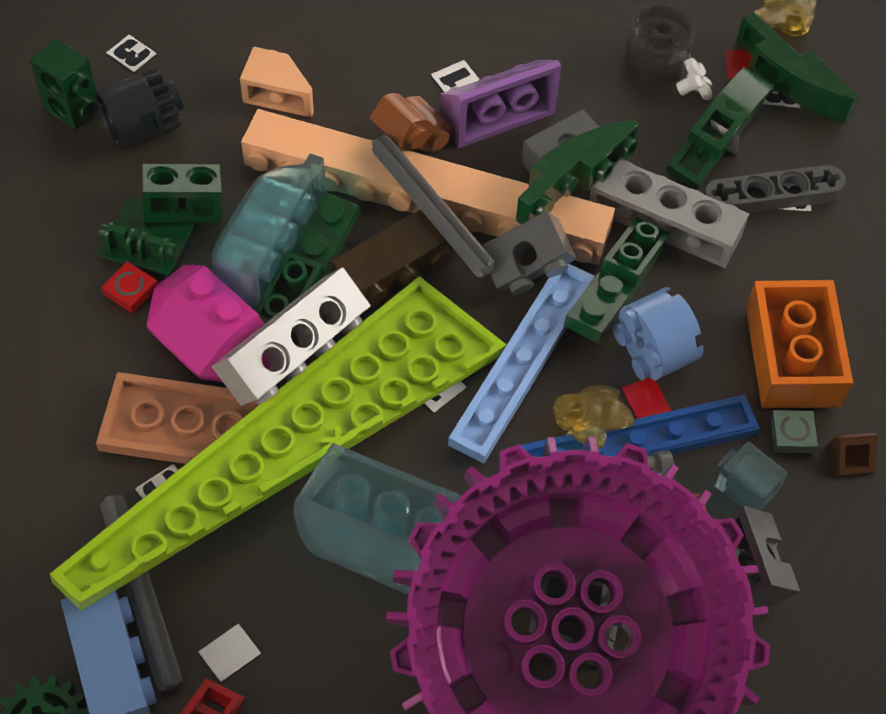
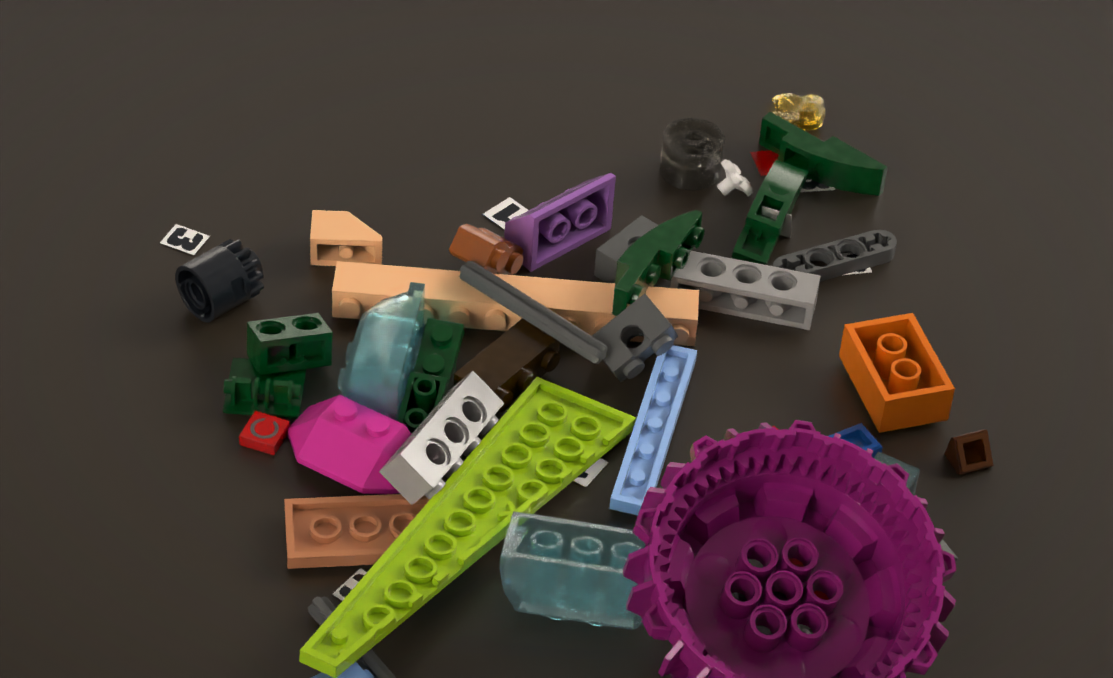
camera: 15 degrees left, 15 degrees down
(65, 83) = (143, 268): dark green brick -> none
(618, 280) = (719, 349): dark green slope -> none
(658, 334) = (772, 382): medium blue brick -> none
(793, 431) = (913, 445): sand green tile -> none

